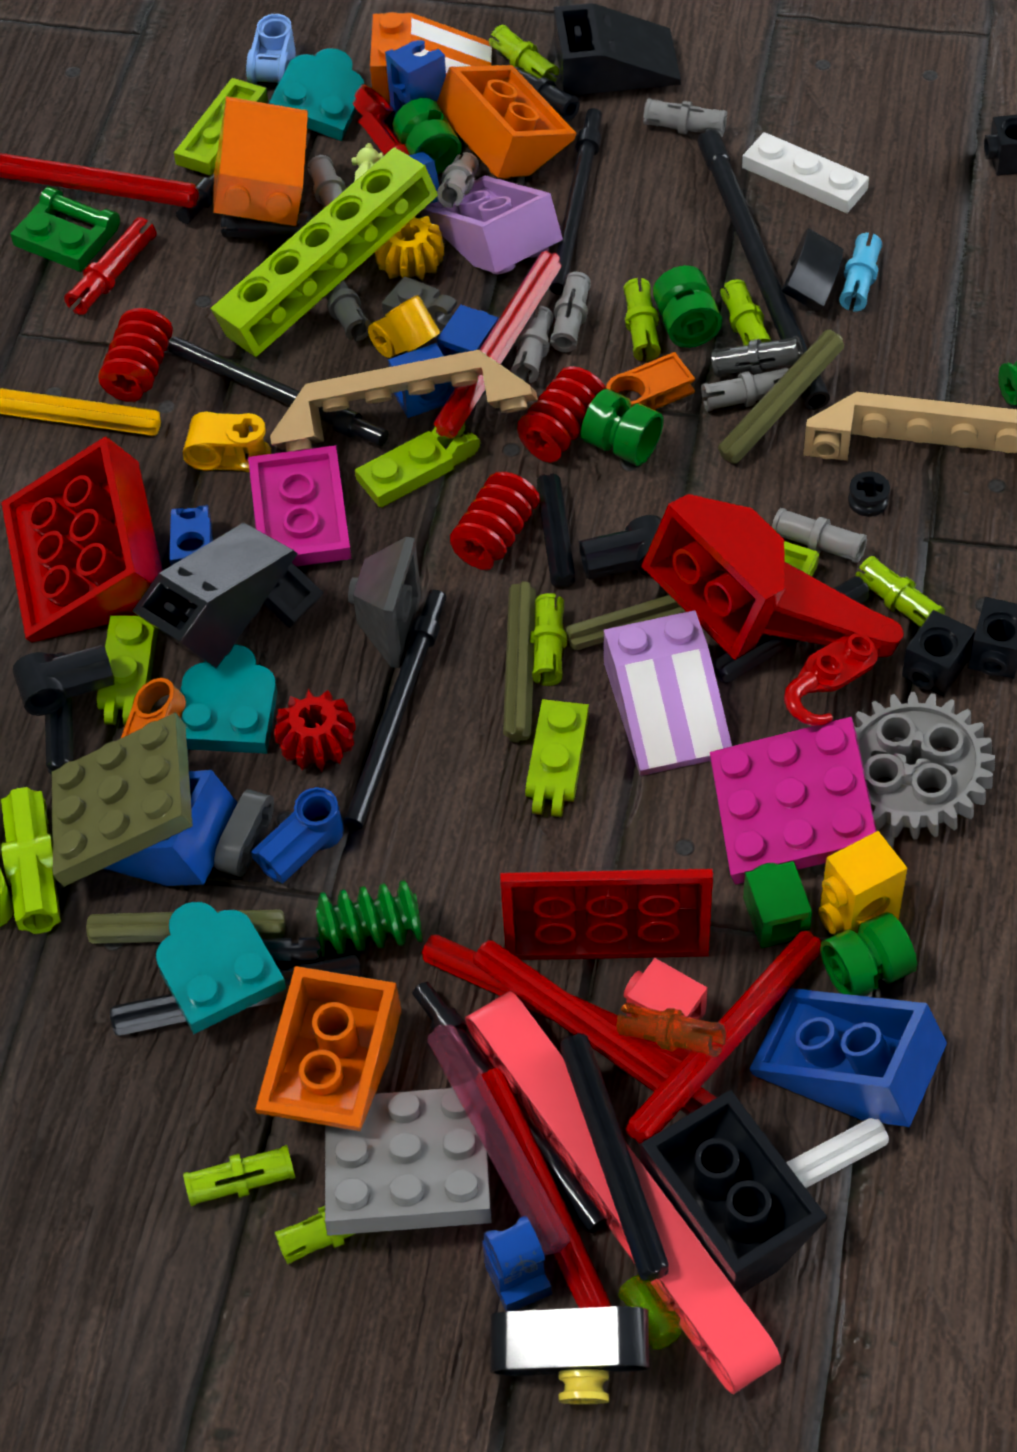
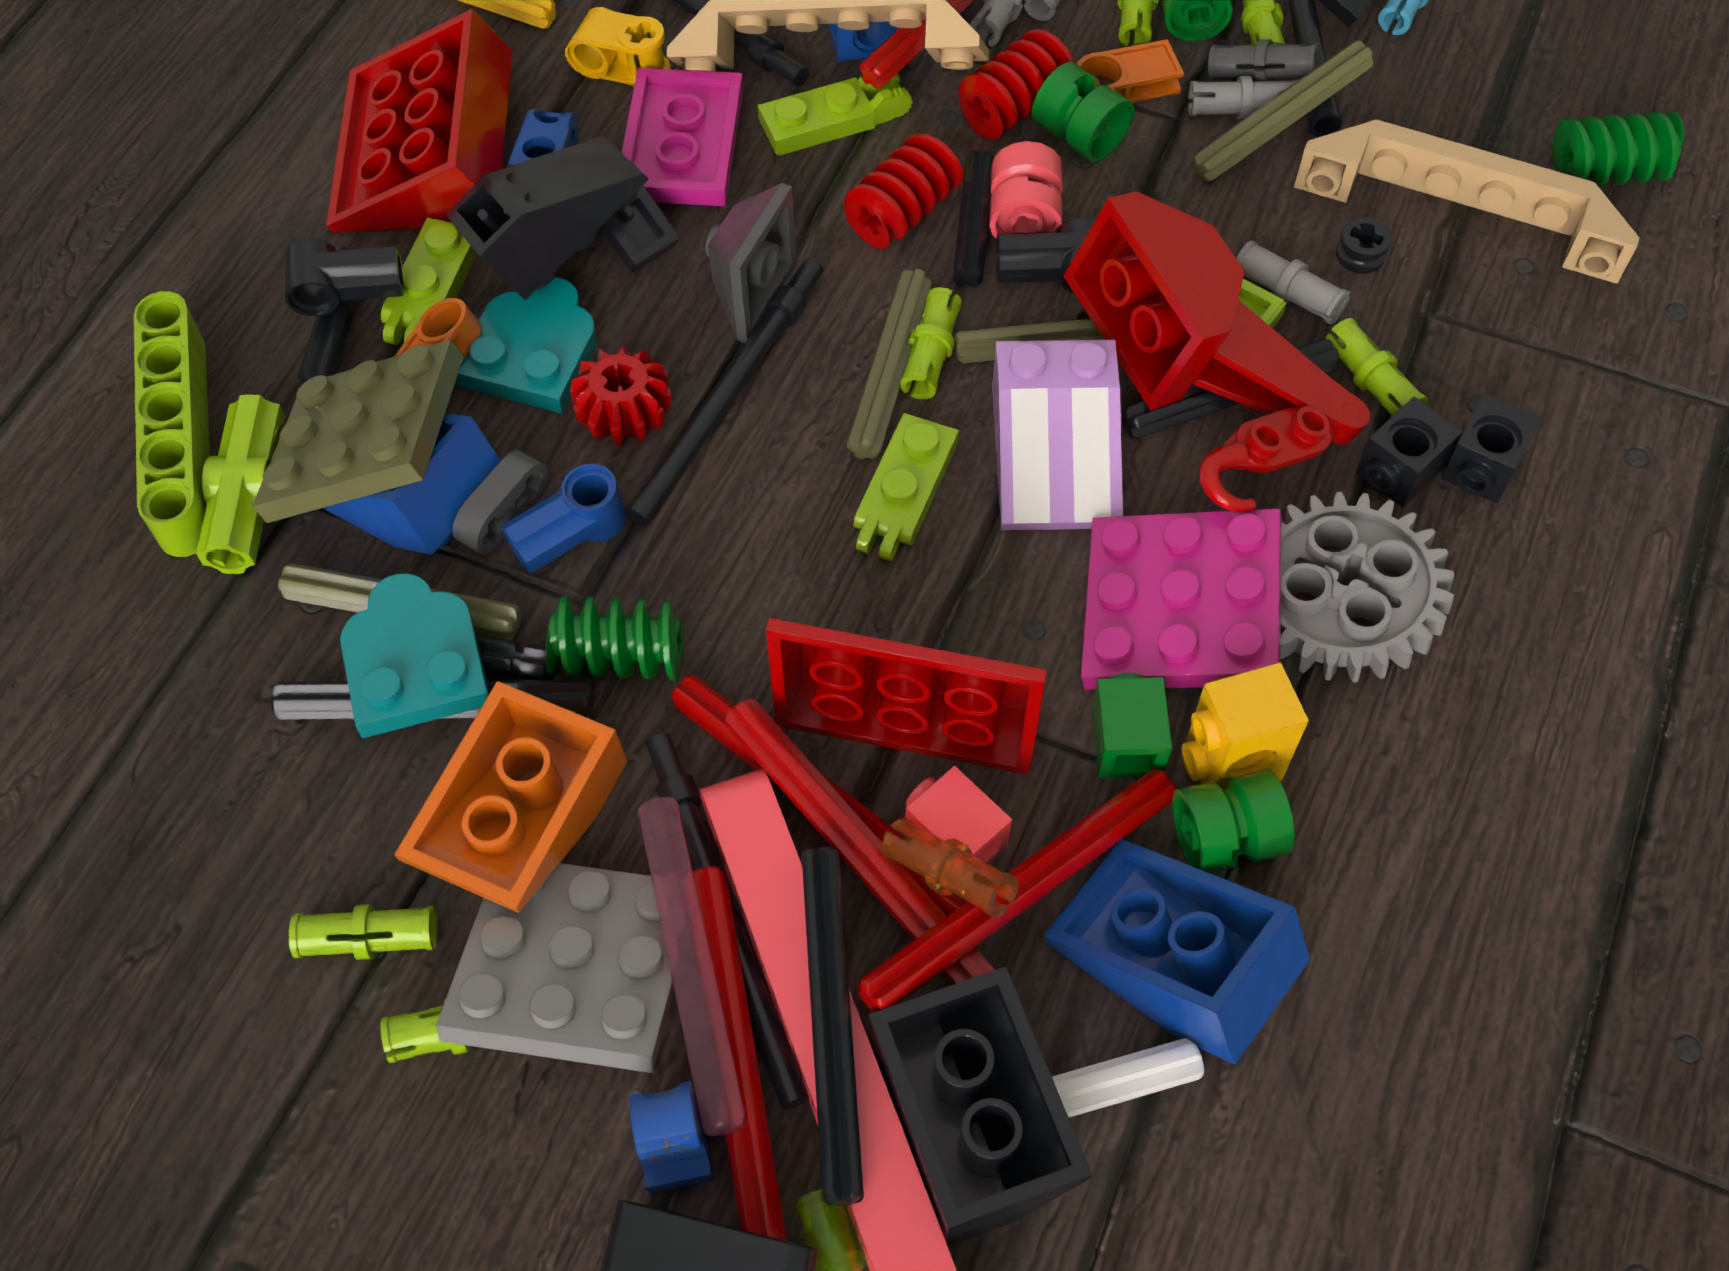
camera: 10 degrees right, 5 degrees up
(593, 501) = (1026, 189): none -> coral wheel

